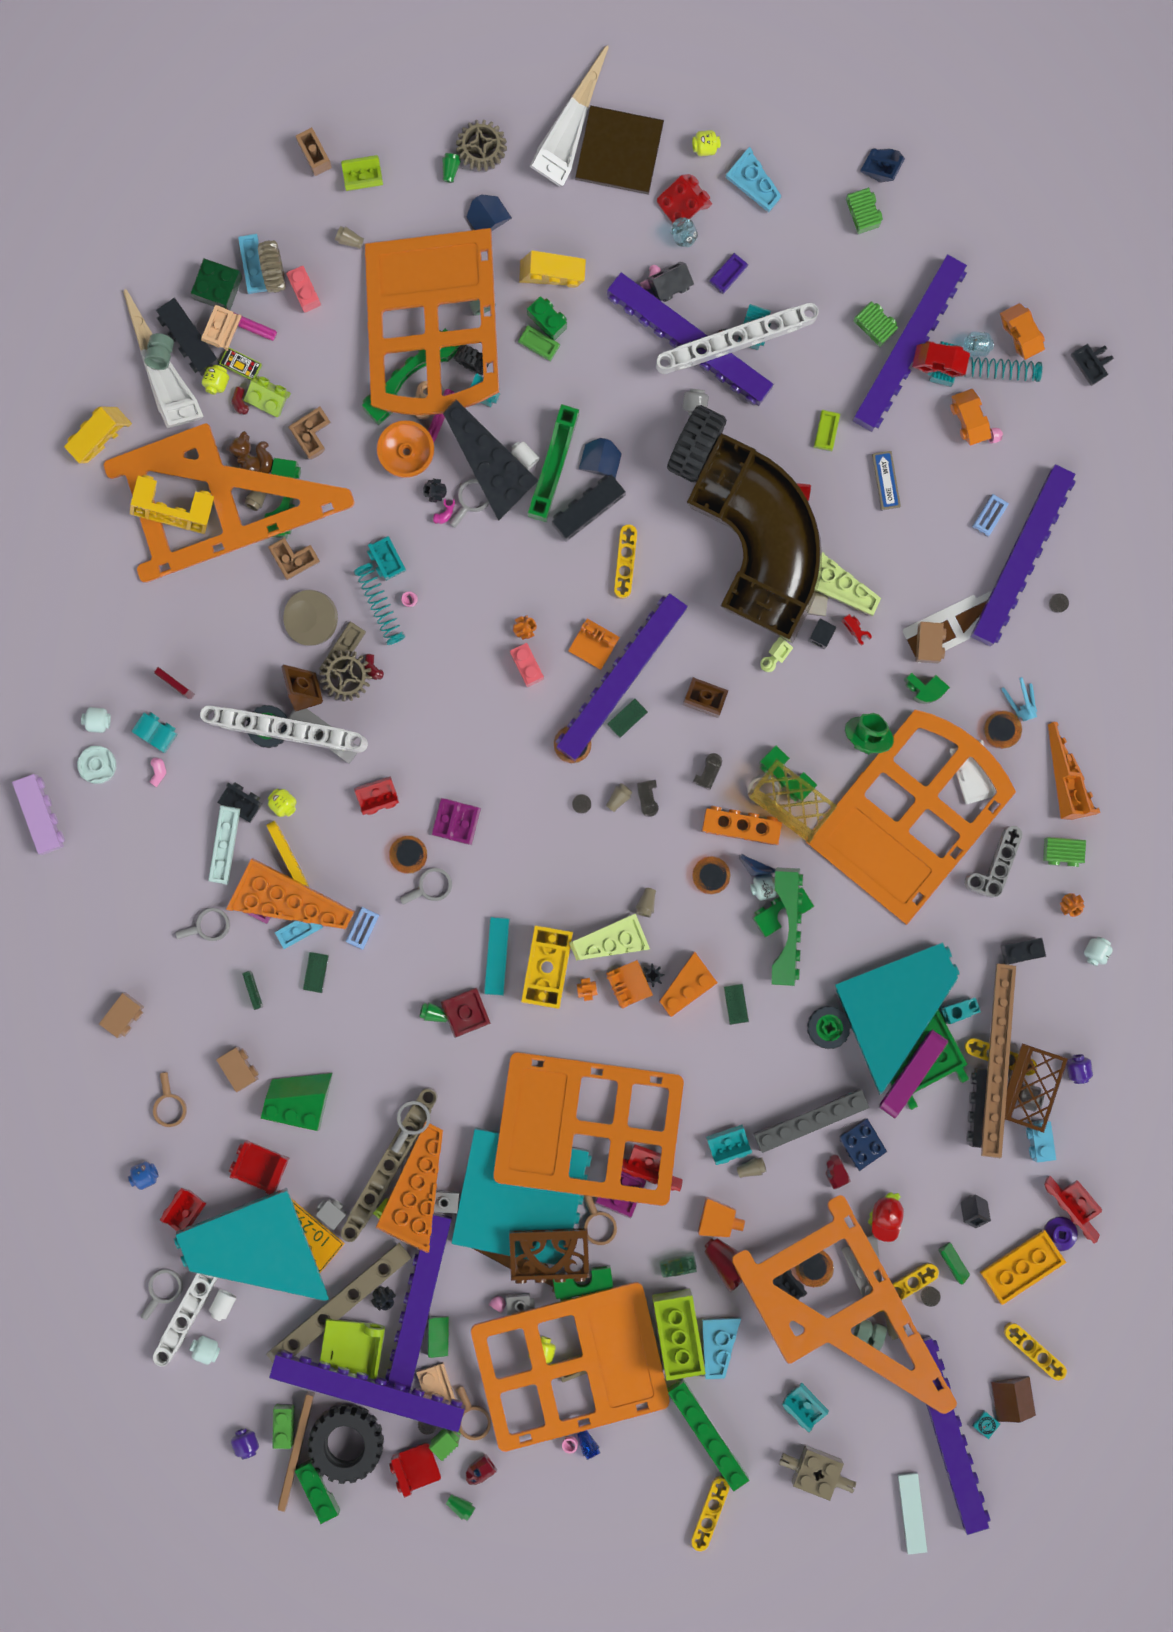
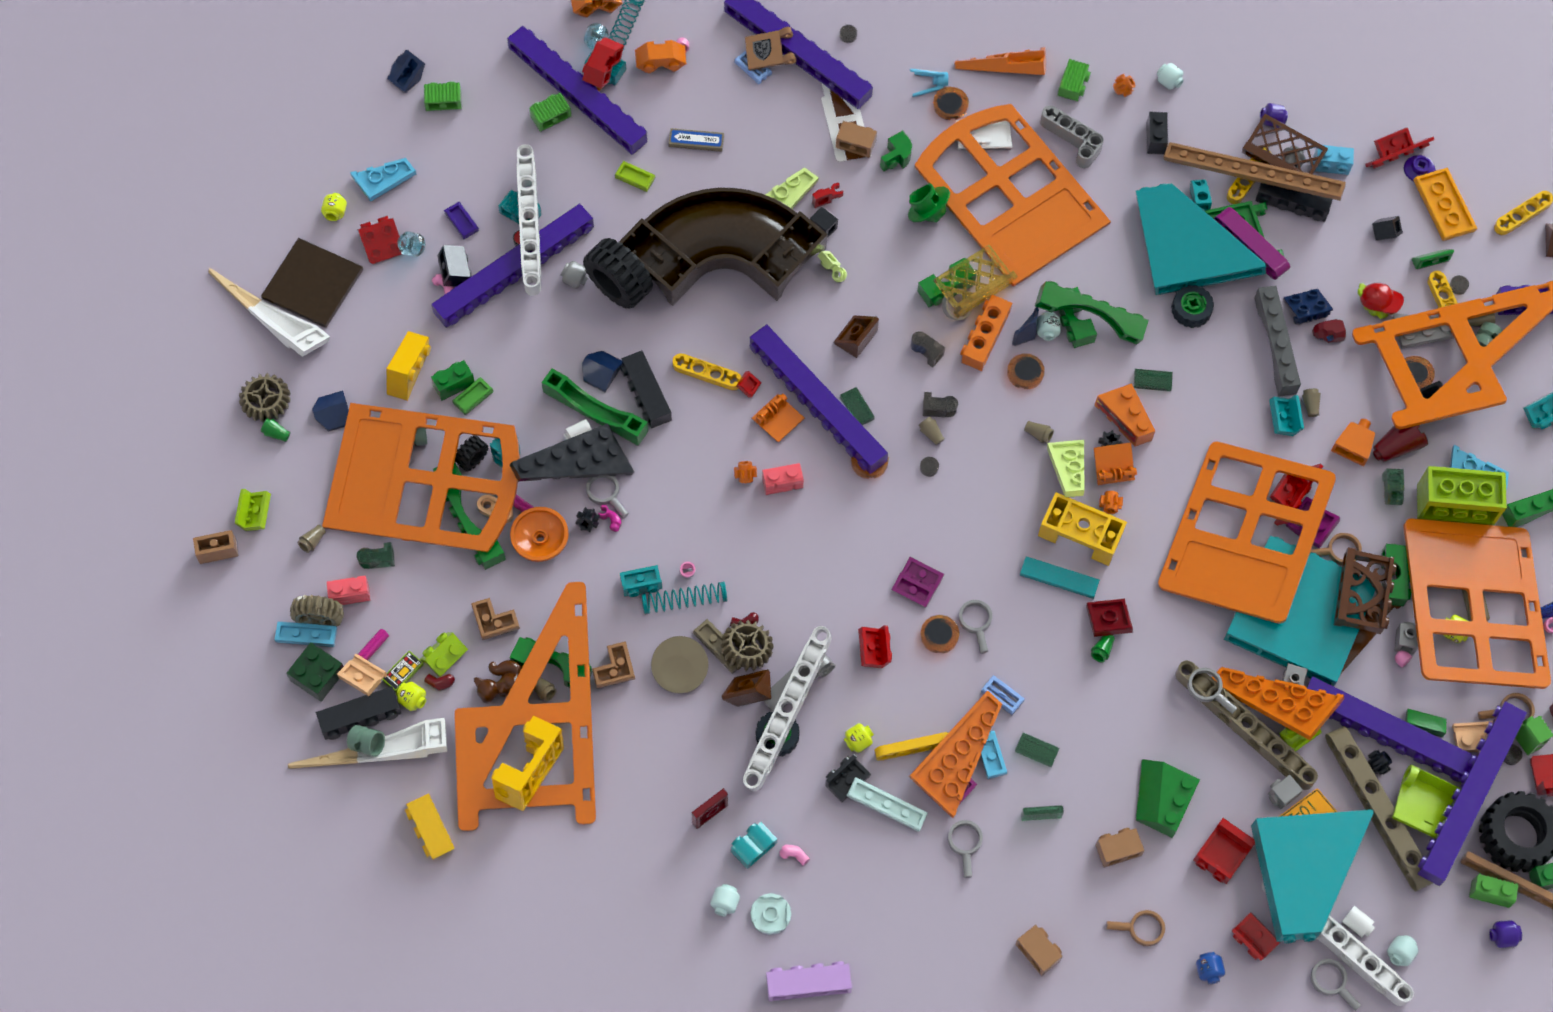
camera: 70 degrees left, 20 degrees down
(343, 300) = (376, 558): none -> clear green leg
(621, 606) = (748, 384): none -> red tile
(1009, 522) = (766, 49): none -> medium nougat flag

